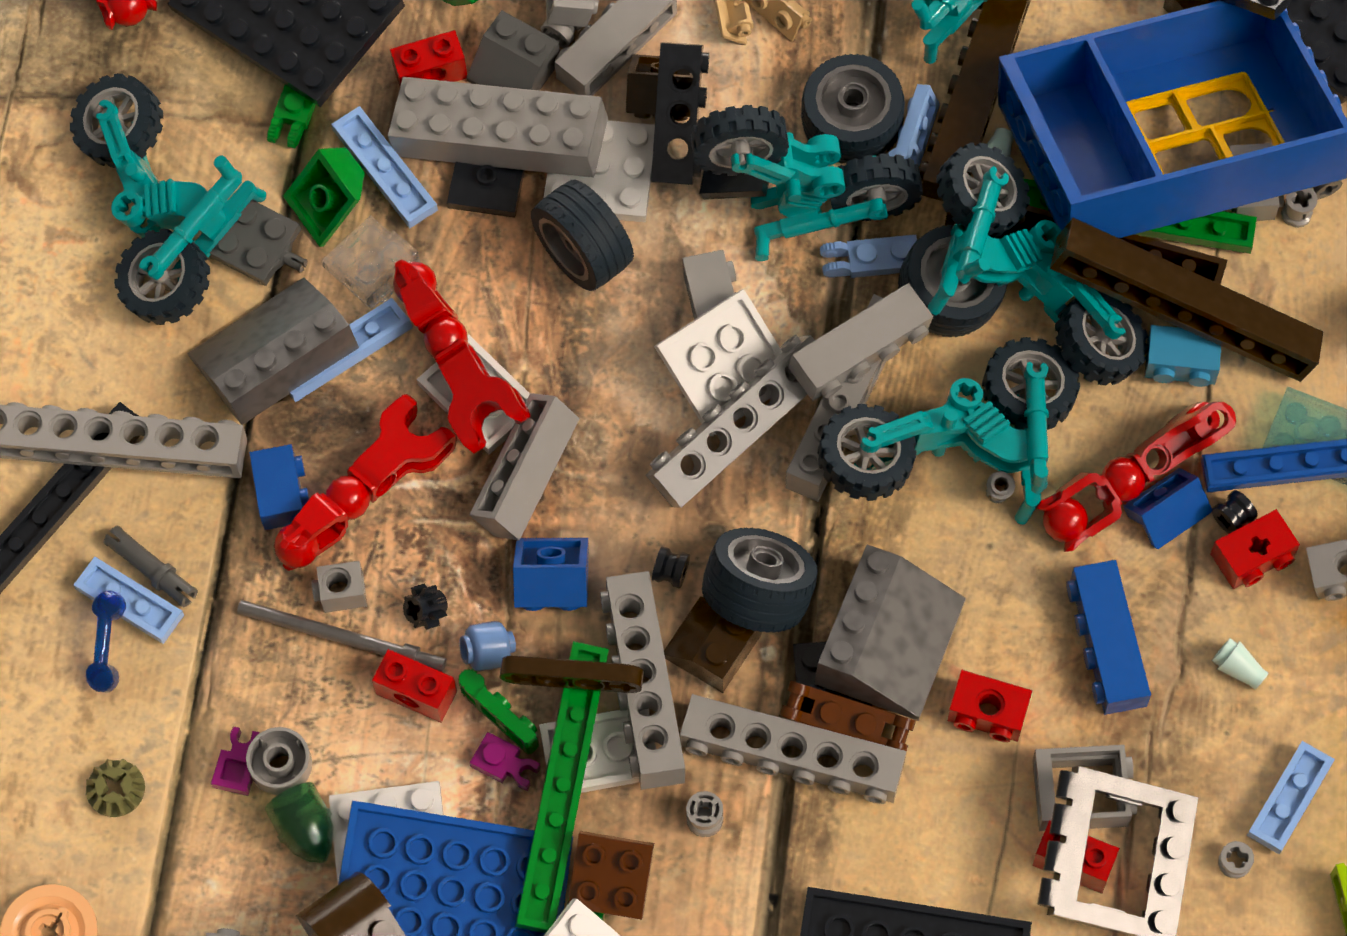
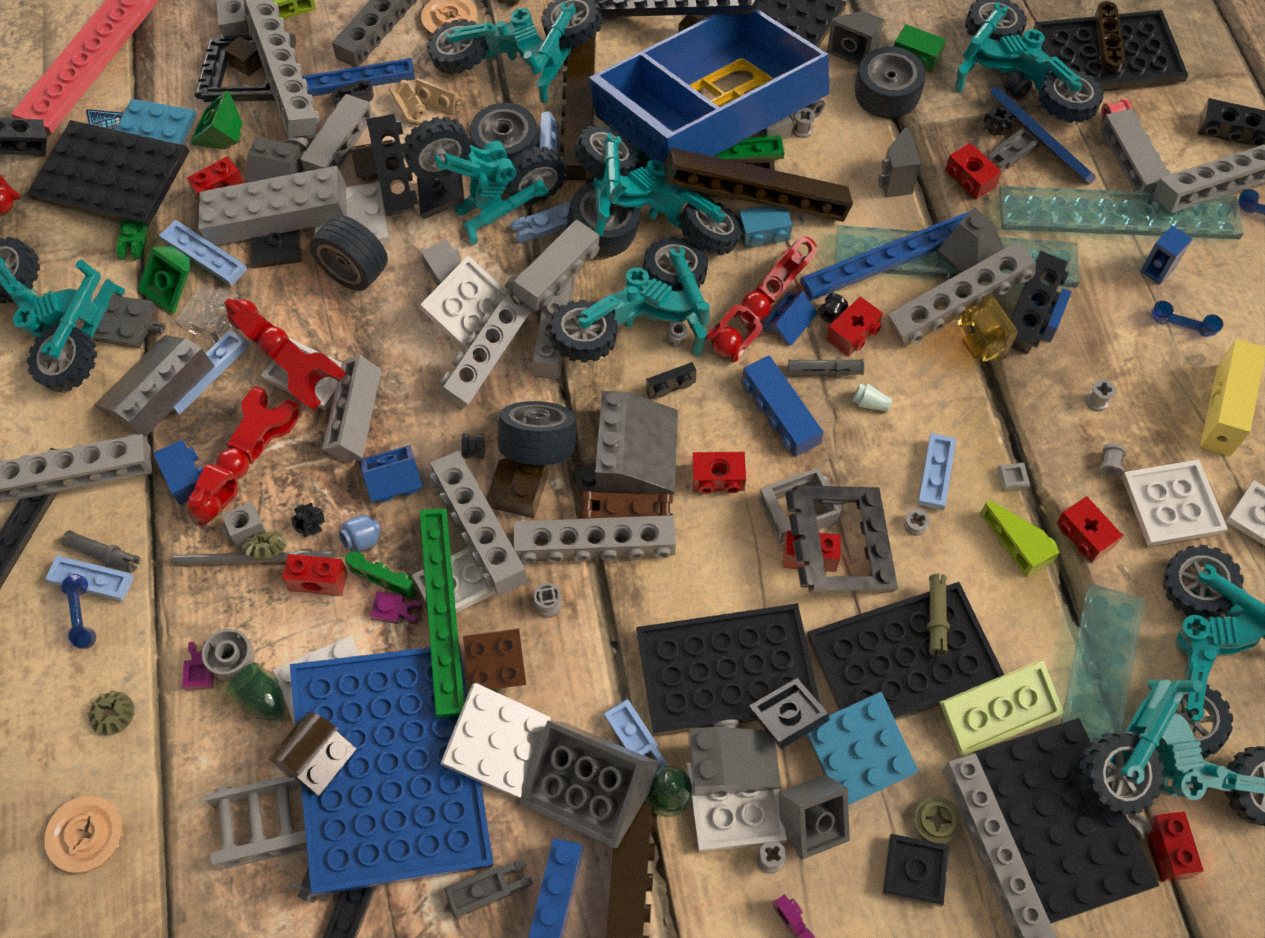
camera: 20 degrees left, 5 degrees down
(350, 625) = (264, 545): none -> olive gear
(571, 674) = (425, 530): dark brown beam -> none
(960, 554) = (671, 380): none -> black plate
(1198, 599) = (826, 367): none -> dark grey pin

